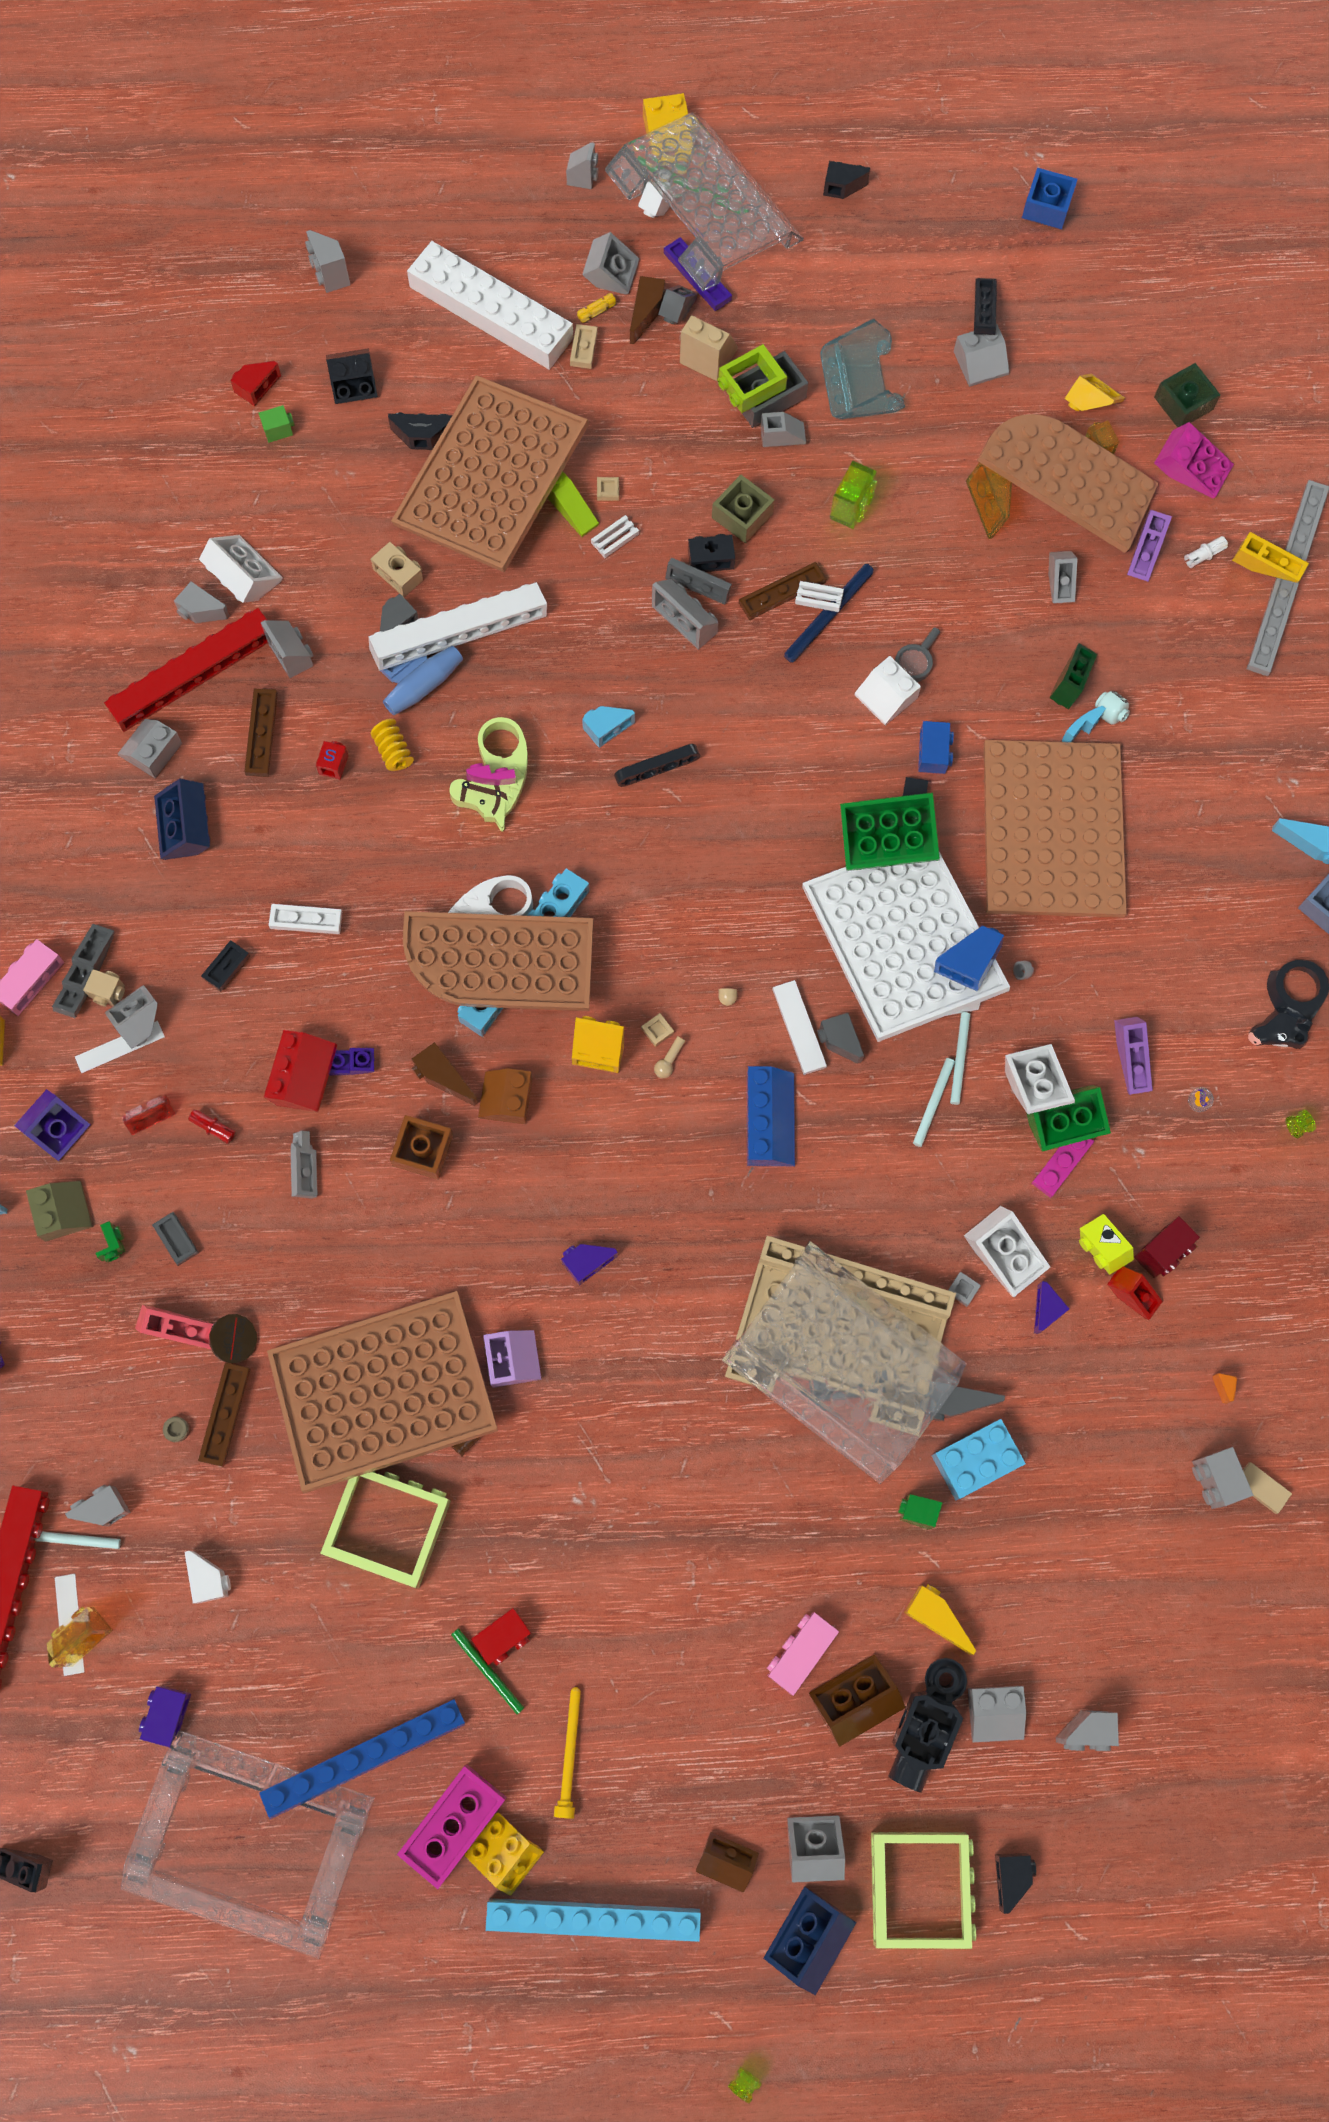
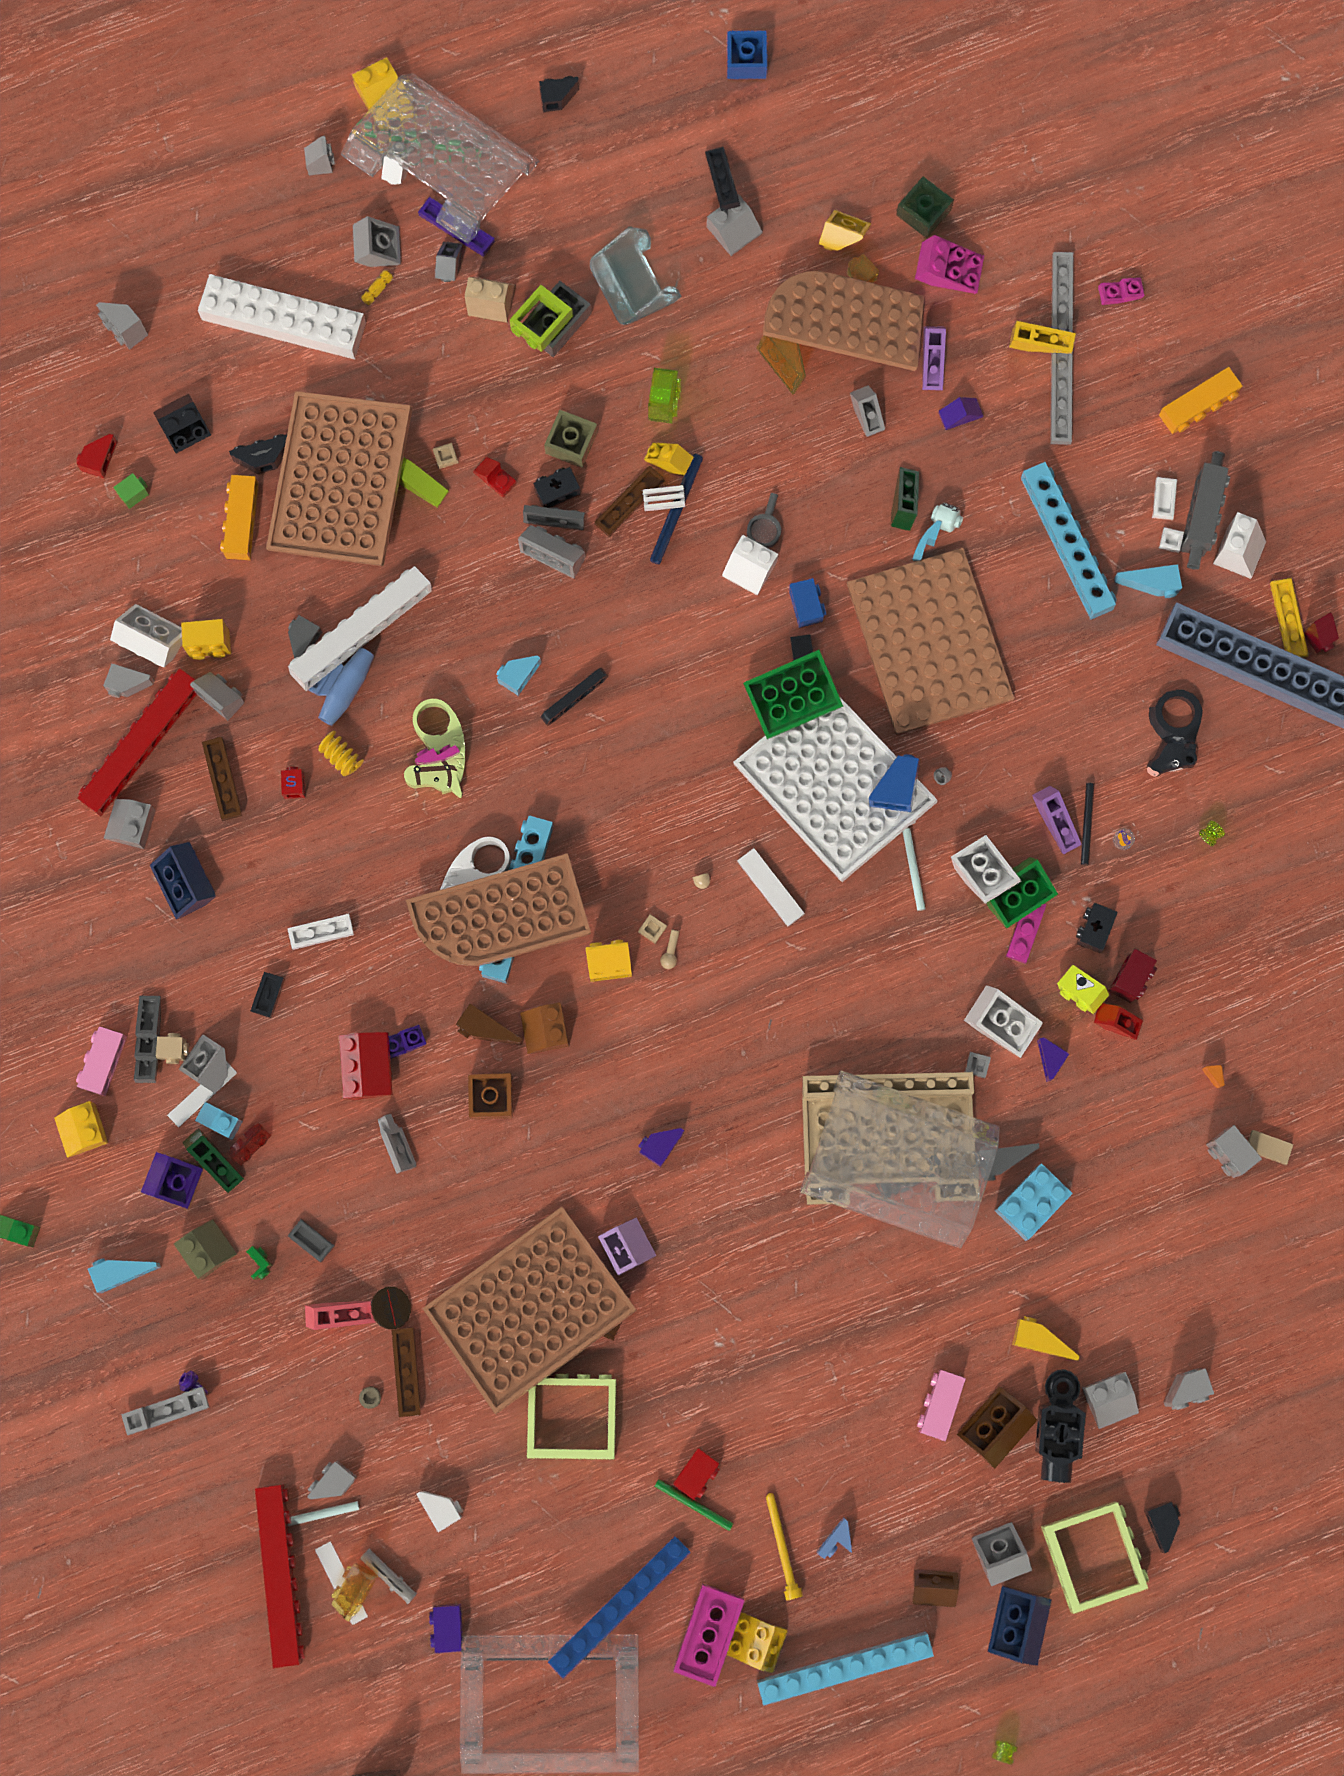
camera: 15 degrees left, 5 degrees up
(102, 1118) = (212, 1160): none -> dark green slope
(122, 1634) = (388, 1576): none -> light grey pin
(126, 1080) = (218, 1121): none -> medium azure slope
(212, 1126) = (307, 1136): red axle -> none
(296, 587) = (206, 639): none -> yellow brick
(376, 483) = (240, 517): none -> light orange brick
(401, 580) = (295, 600): tan brick -> none
(583, 346) = (378, 328): tan plate -> none
(595, 541) = (476, 484): white tile -> none
(639, 1762) = (839, 1534): none -> medium blue slope
(647, 305) = (422, 271): reddish brown slope -> none
(651, 524) = (494, 476): none -> red slope
(770, 1117) = (771, 973): blue slope -> none
(781, 430) = (580, 353): light grey slope -> none
(838, 559) = (669, 457): none -> yellow slope
(841, 1037) = (808, 885): dark grey slope -> none
(919, 1511) = (999, 1260): green slope -> none
(933, 1102) = (903, 916): light aqua bar -> none
(1153, 1176) = (1105, 919): none -> black brick
(1160, 608) = (960, 412): none -> dark purple slope
(1165, 1071) = (1087, 823): none -> black bar
(1206, 551) = (984, 347): white axle -> none
(1243, 846) = (1094, 605): none -> medium azure brick

